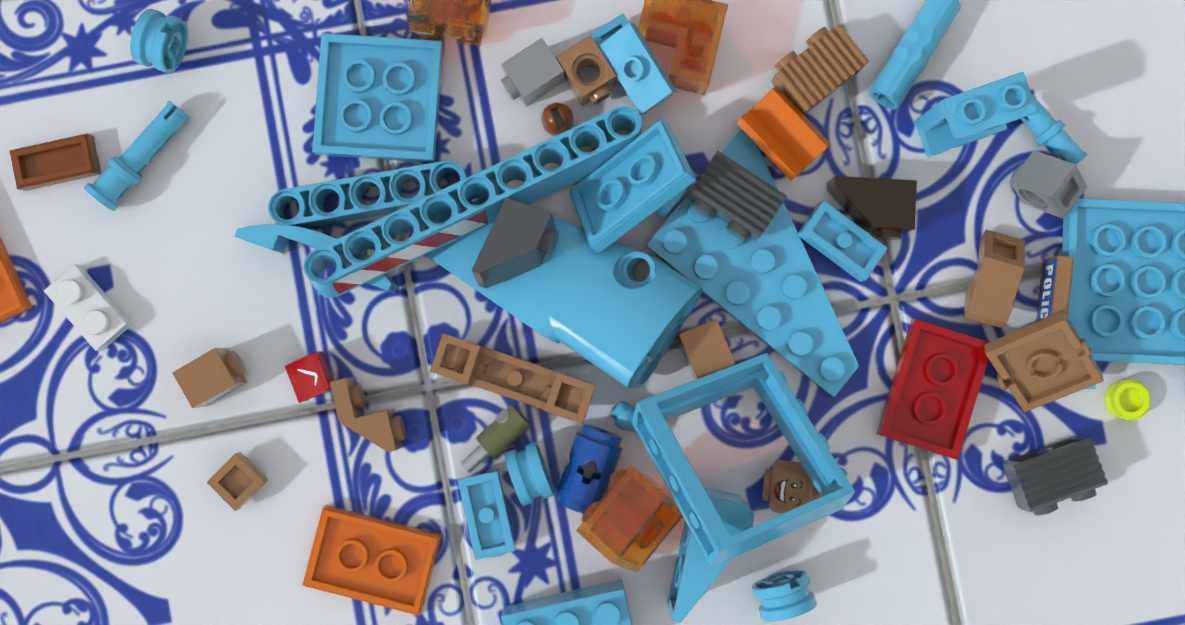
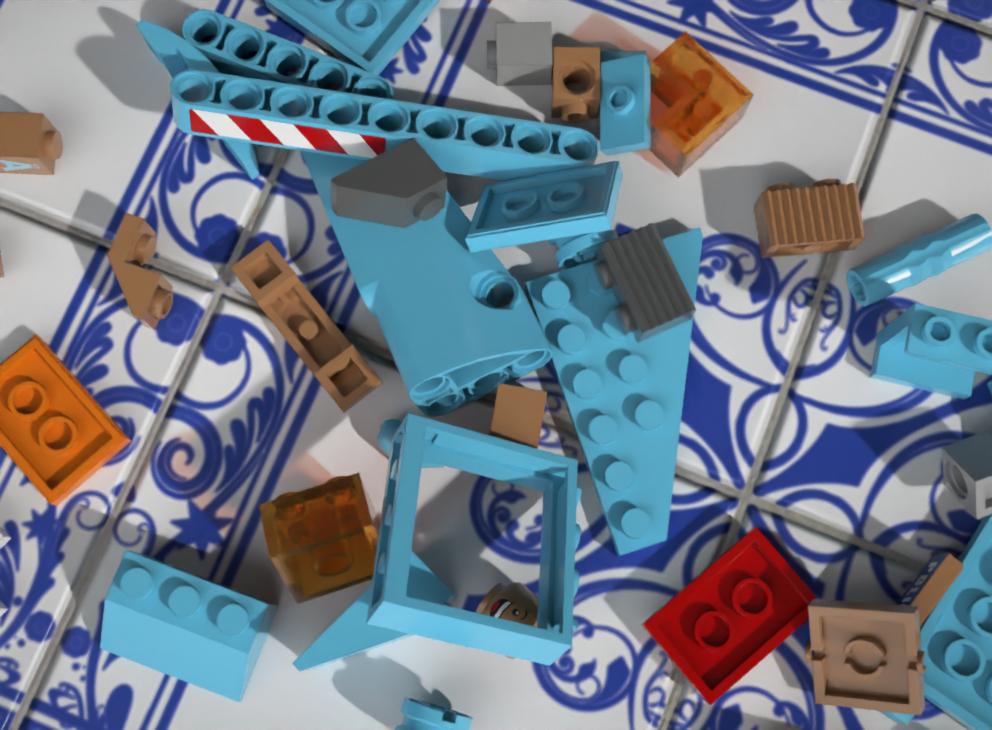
camera: 30 degrees right, 10 degrees down
(310, 376) = (113, 200): red slope -> none
(486, 514) = (187, 445): medium azure plate -> none
(498, 437) = (252, 376): olive piece -> none
(529, 474) = (256, 429): medium azure wheel -> none
(549, 123) = (529, 109): dark orange hinge -> none
(589, 445) = (335, 442): blue piece -> none
(783, 133) = (733, 258): orange panel -> none
(842, 241) = (728, 400): medium azure plate -> none
(877, 203) = (787, 384): dark brown slope -> none
(996, 280) = (866, 540): medium nougat slope -> none

